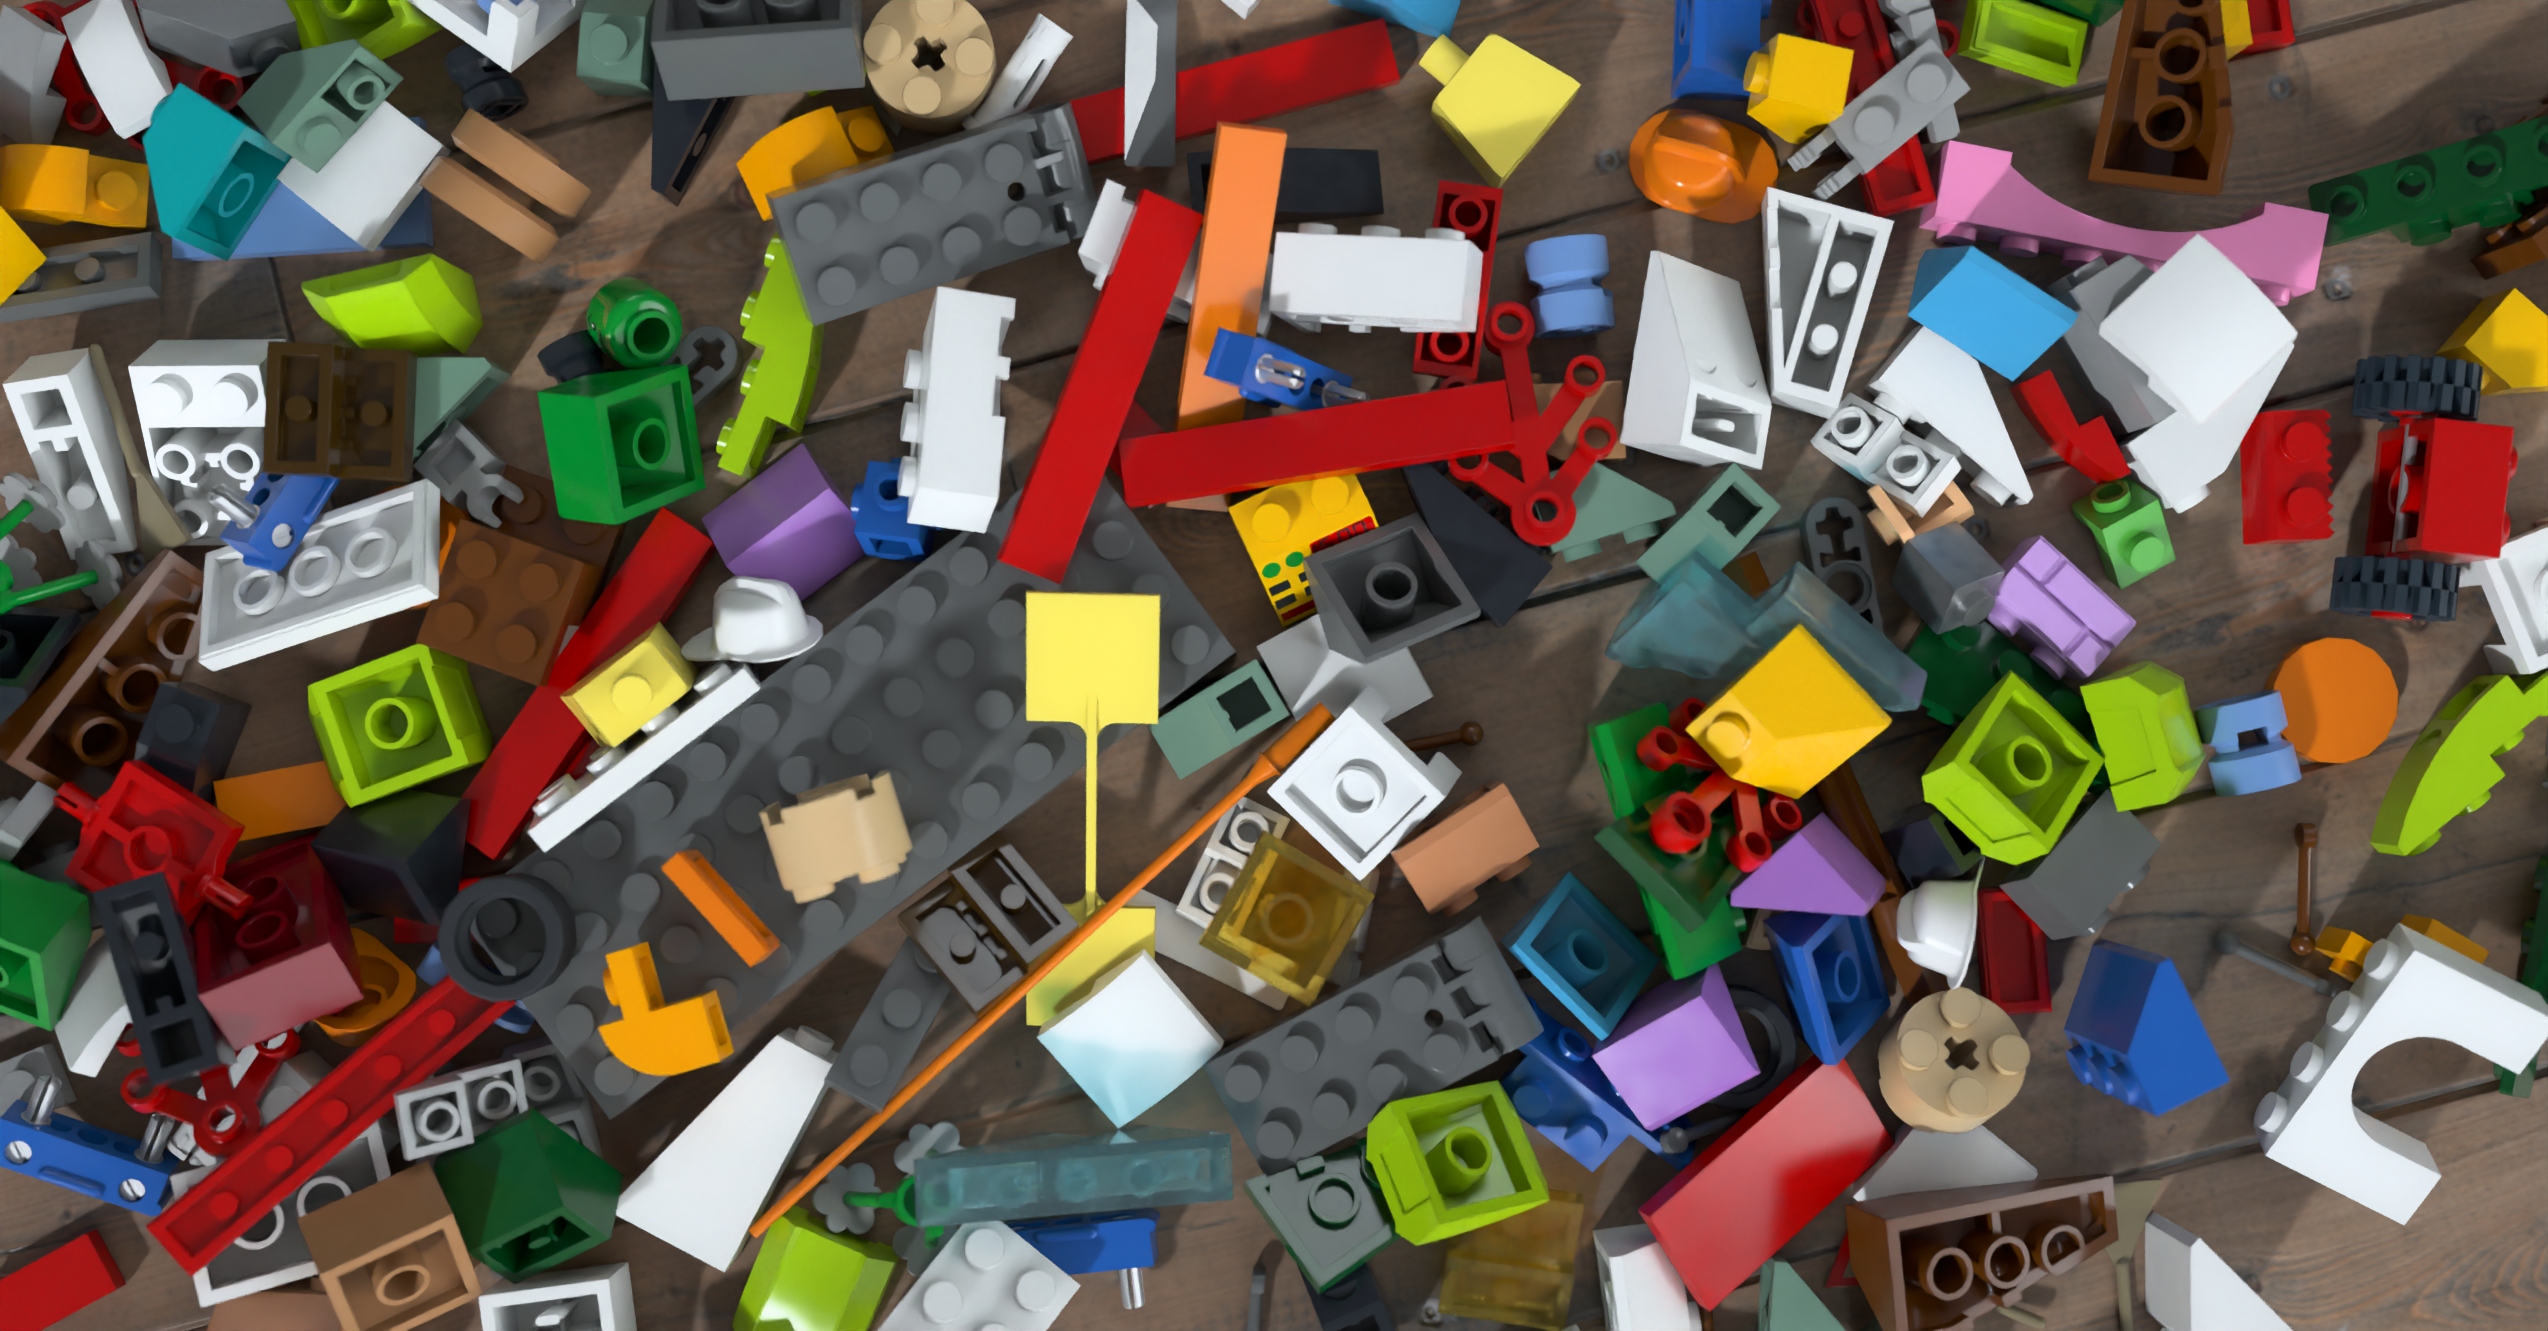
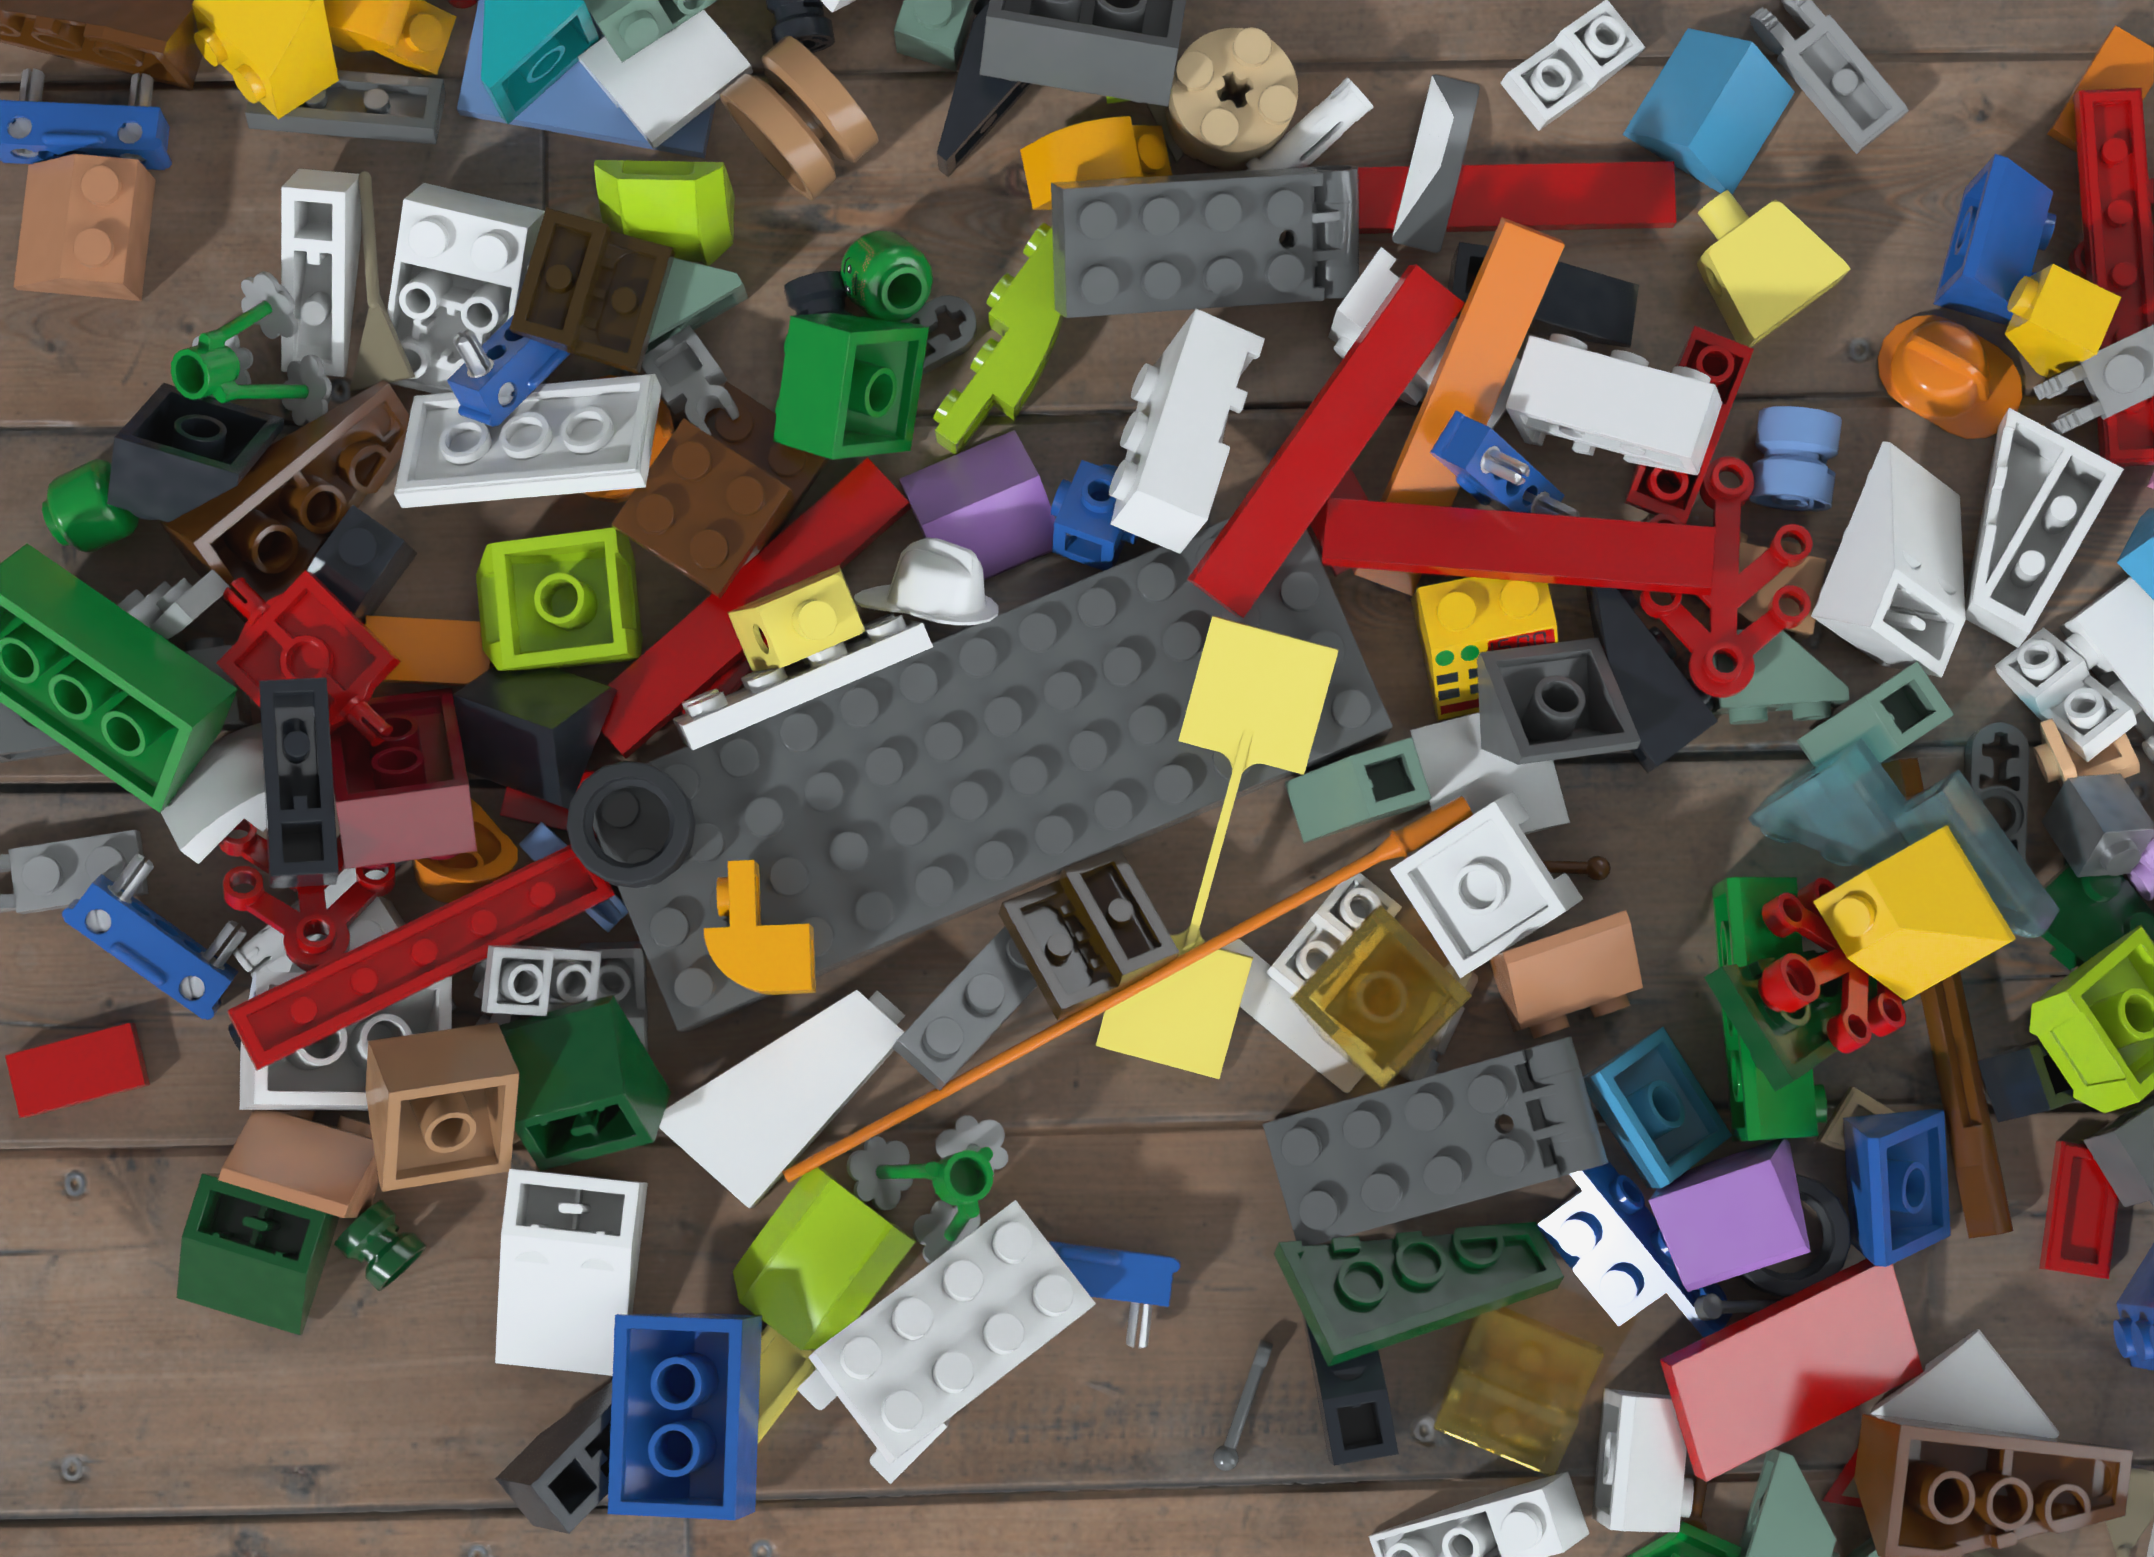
camera: 15 degrees right, 5 degrees down
(721, 906) = (845, 845): orange tile -> none
(837, 834) = (977, 800): tan brick -> none
(1073, 1175) = (1118, 1193): clear light blue slope -> none
(1131, 1039) = (1197, 1081): white slope -> none
(1454, 1161) = (1488, 1268): lime slope -> none
(1814, 873) = (1902, 1070): medium lavender slope -> none
(1940, 925) = (2016, 1157): white piece -> none
(1979, 1042) = (1998, 1298): tan brick -> none

